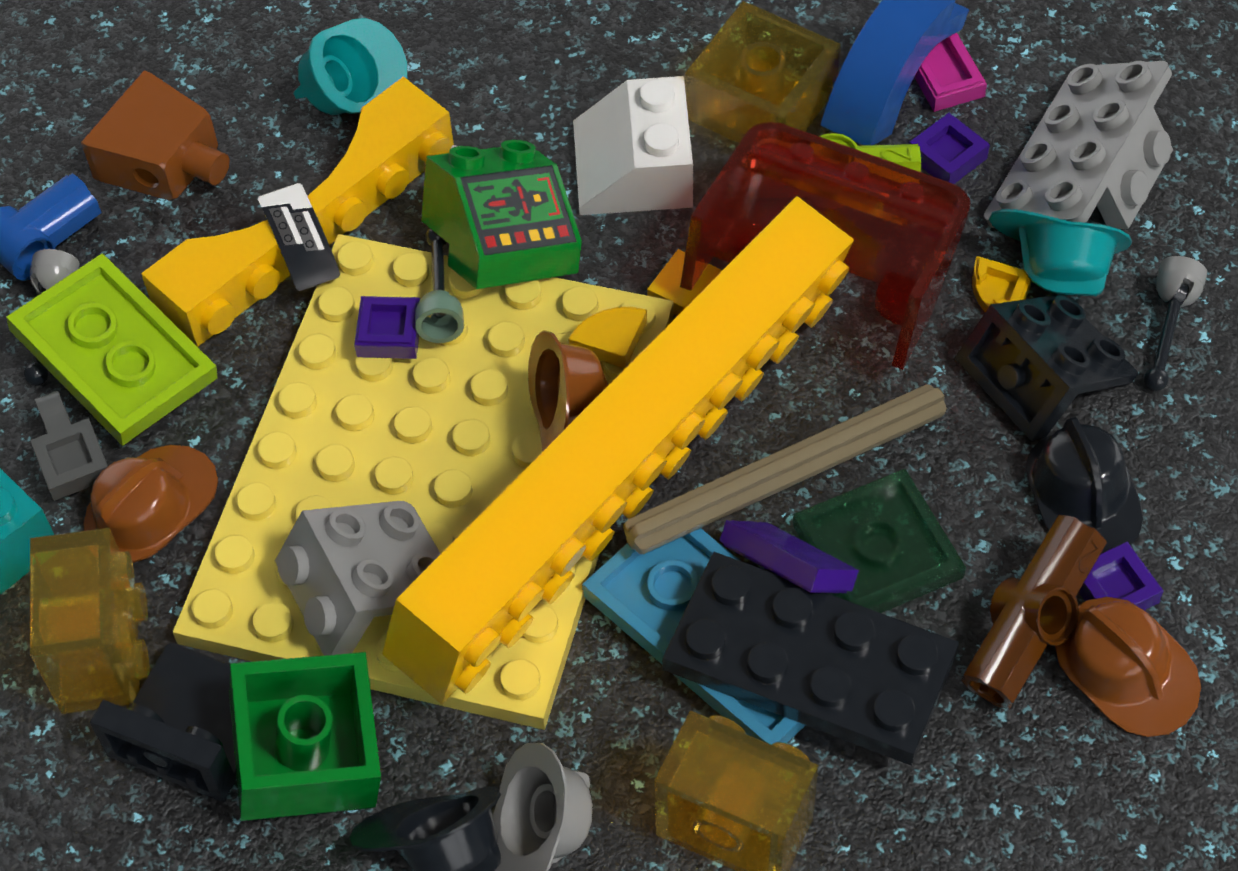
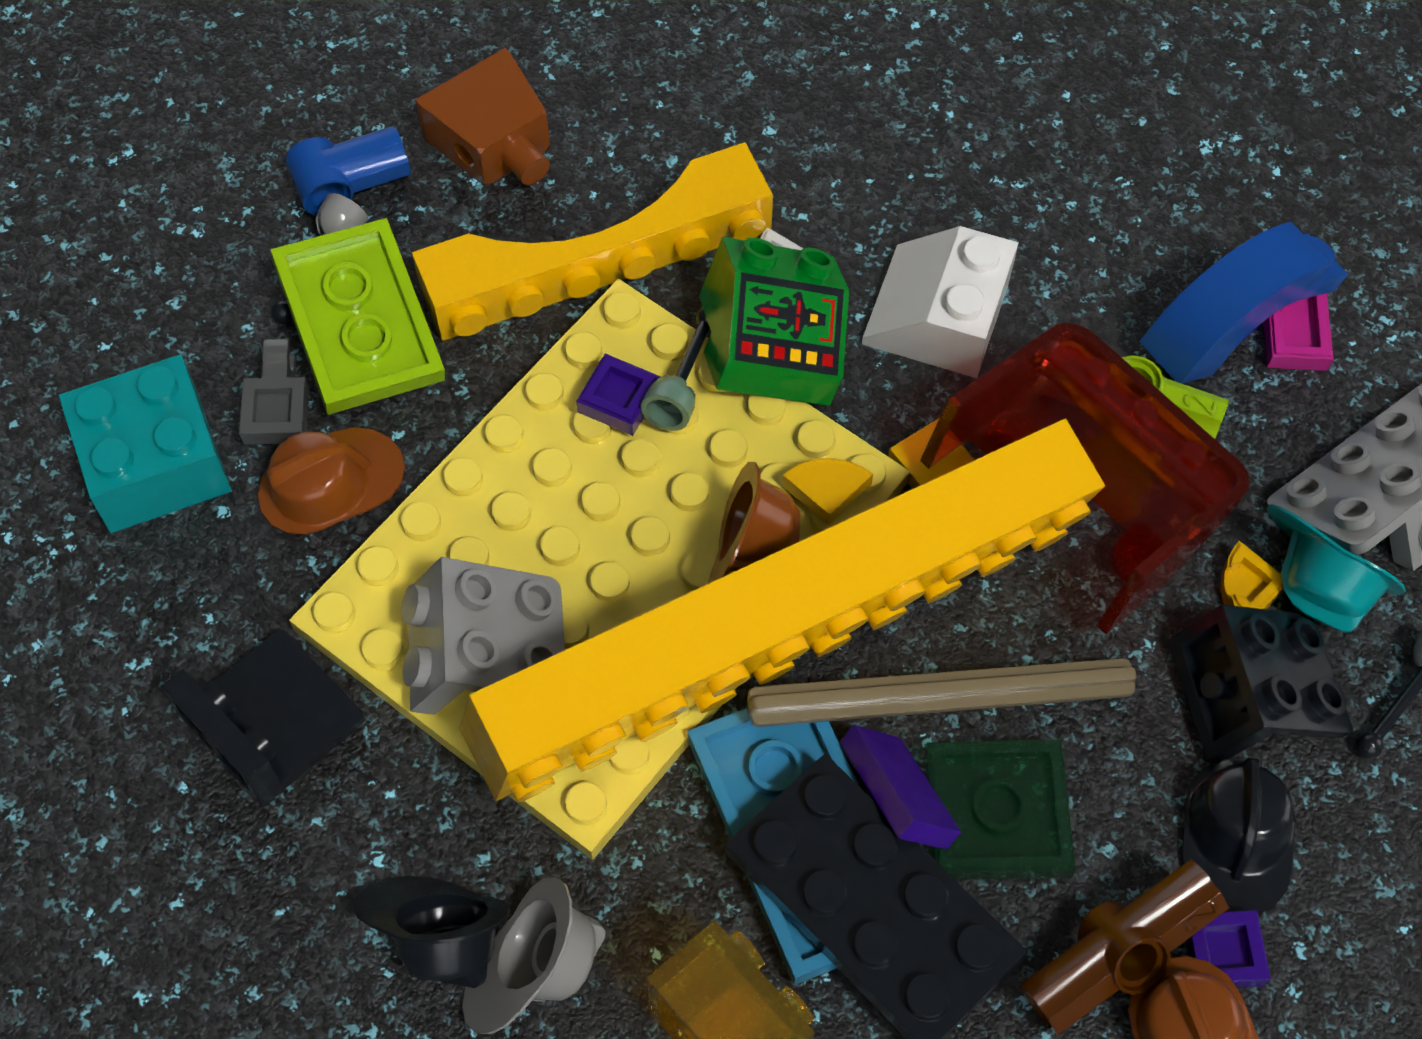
camera: 20 degrees right, 5 degrees up
(86, 620) = (207, 580): clear yellow brick -> none
(299, 236) = (574, 270): sticker -> none
(304, 736) = (351, 778): green brick -> none
(349, 66) = (704, 112): teal piece -> none
(760, 73) = (1099, 269): clear yellow brick -> none
(950, 149) = (1263, 415): dark purple tile -> none

